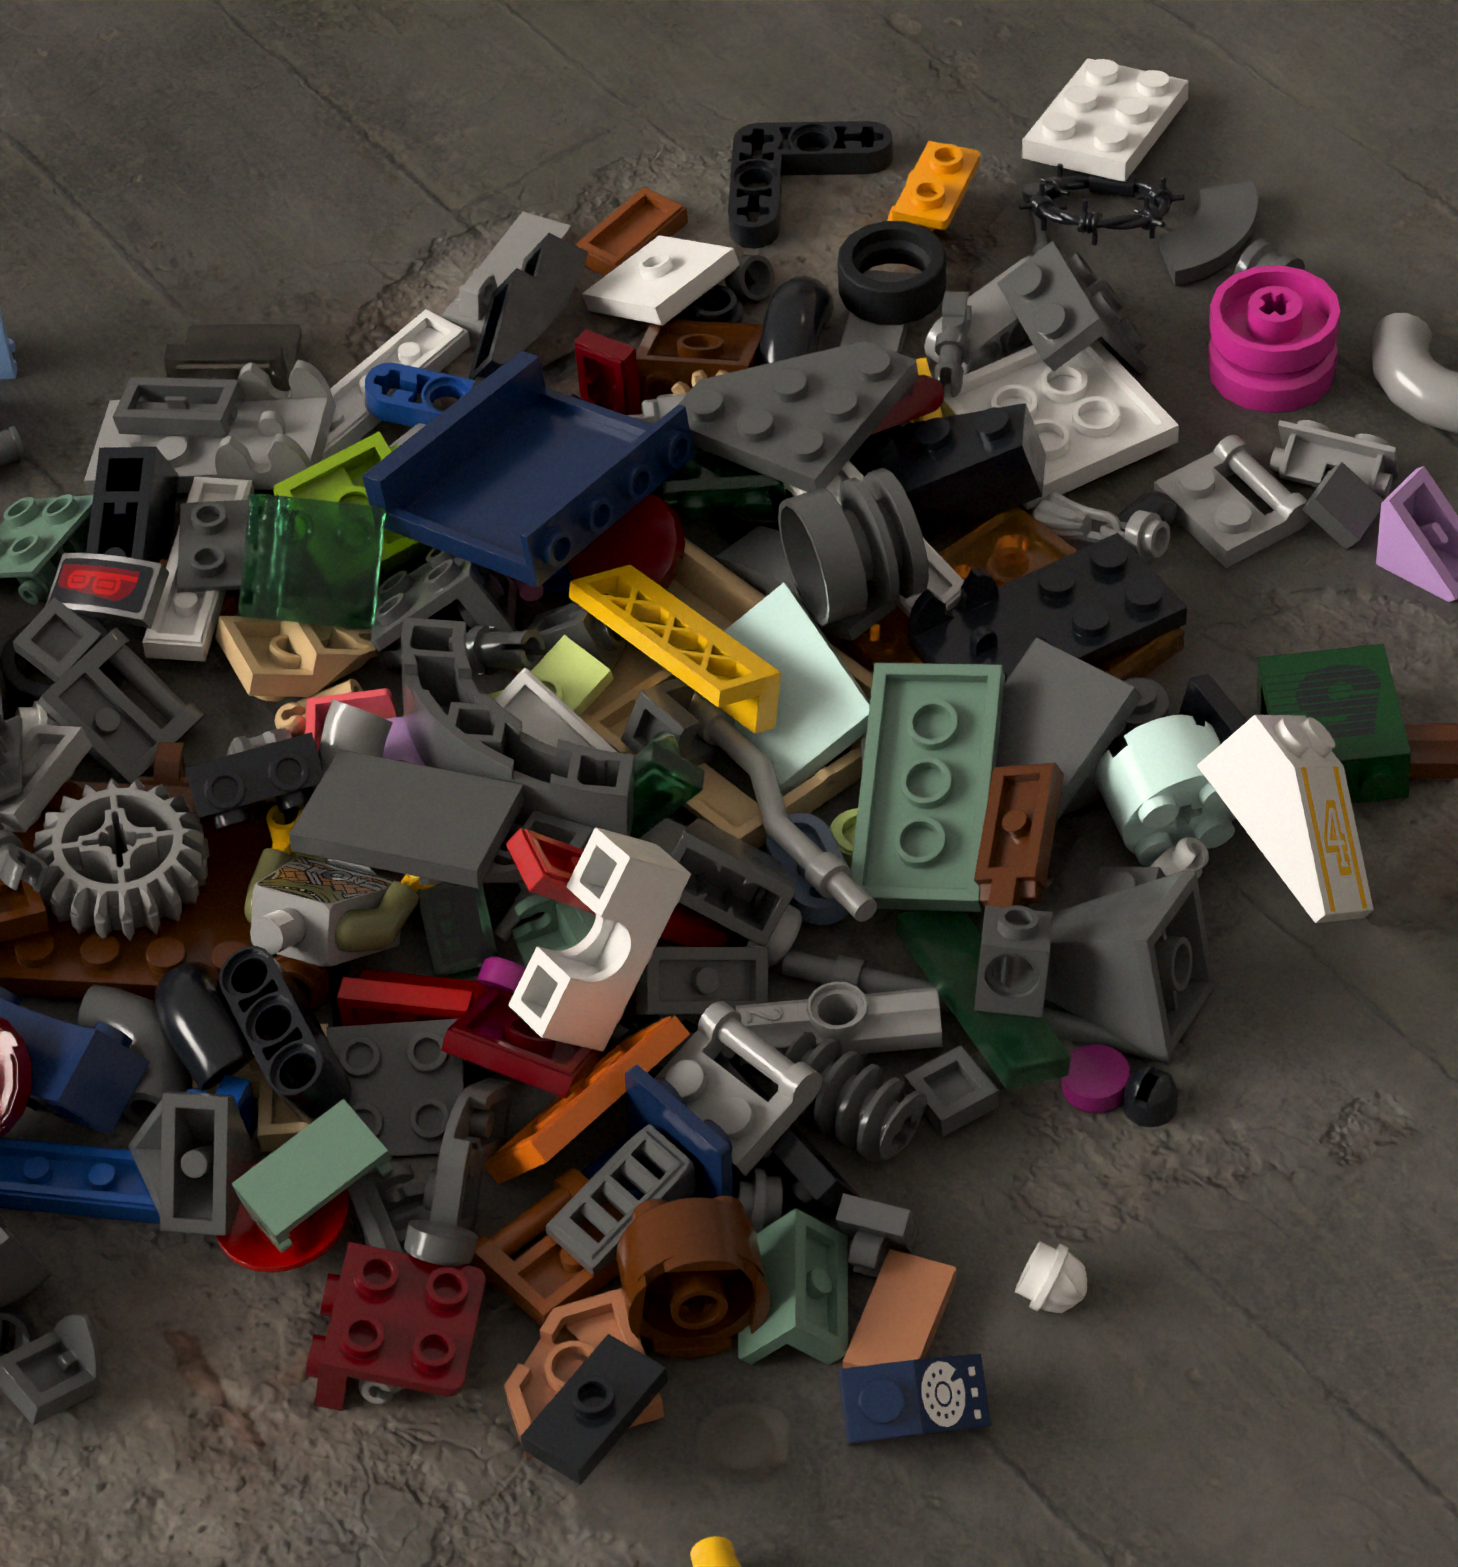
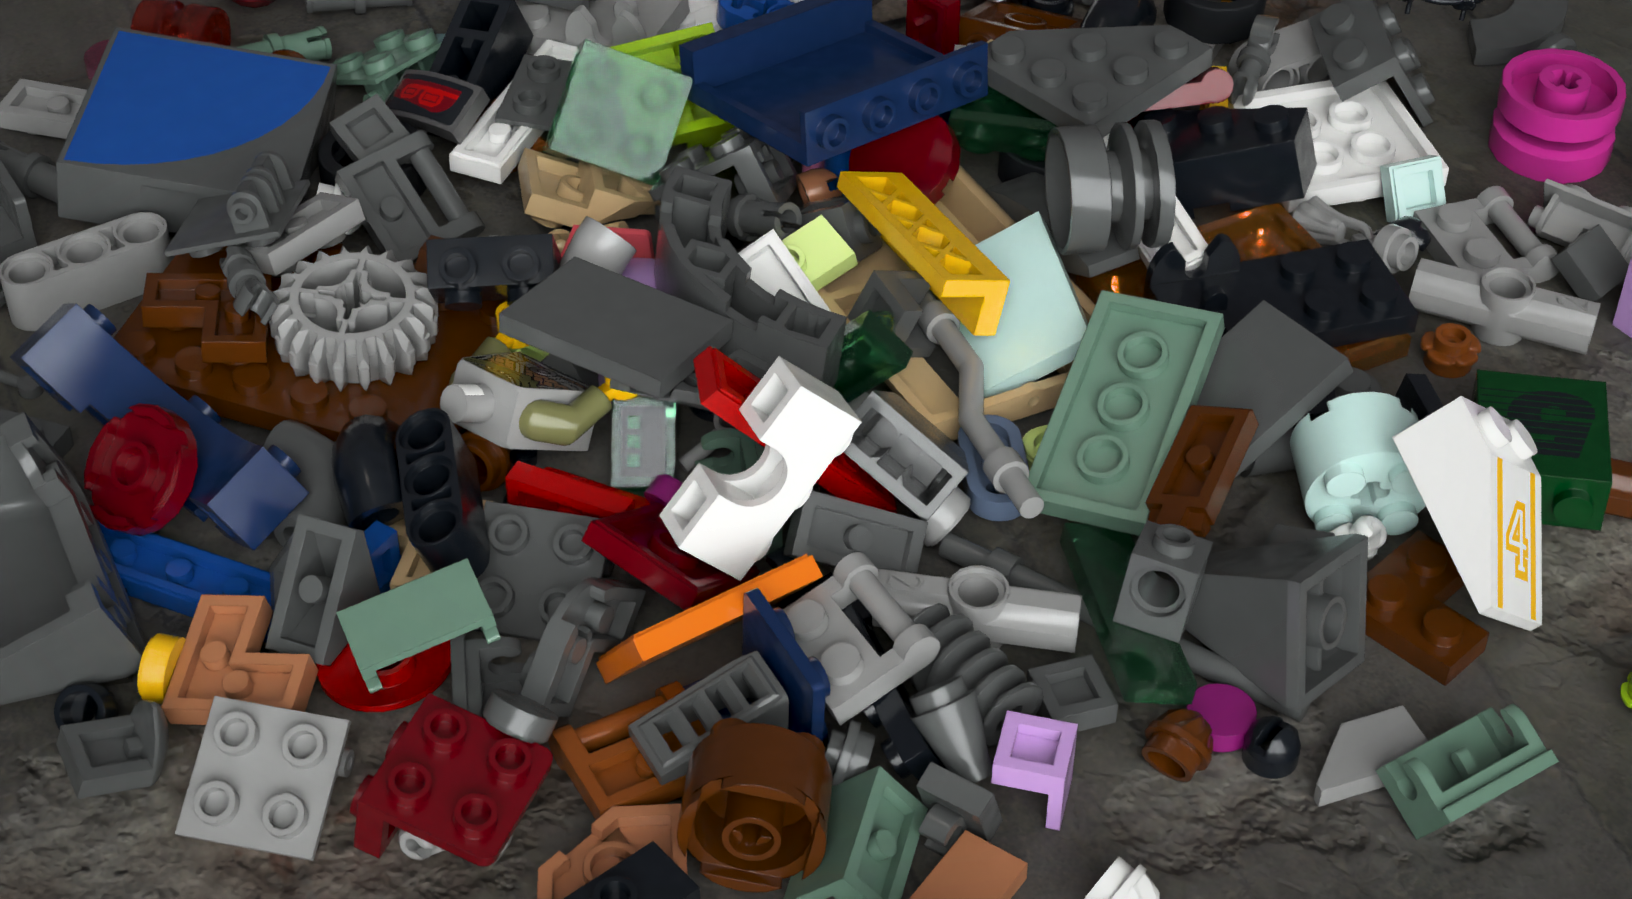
camera: 10 degrees right, 5 degrees down
(65, 1276) = (158, 666): none -> yellow tile
(130, 1273) = (226, 662): none -> nougat plate
(208, 1360) = (265, 778): none -> light grey hinge
(542, 598) = (813, 185): none -> nougat hinge
(853, 1154) = (953, 727): none -> dark grey cone
(939, 1165) = (1038, 758): none -> lavender panel
(1065, 1115) = (1178, 744): none -> reddish brown plate
(1146, 455) = (1412, 186): none -> light aqua tile
(1224, 633) = (1450, 350): none -> dark orange plate
(1246, 1081) = (1363, 748): none -> light grey tile
(1247, 929) = (1410, 614): none -> reddish brown plate
(1266, 573) = (1504, 306): none -> light grey piece
(1333, 1077) = (1464, 768): none -> sand green hinge

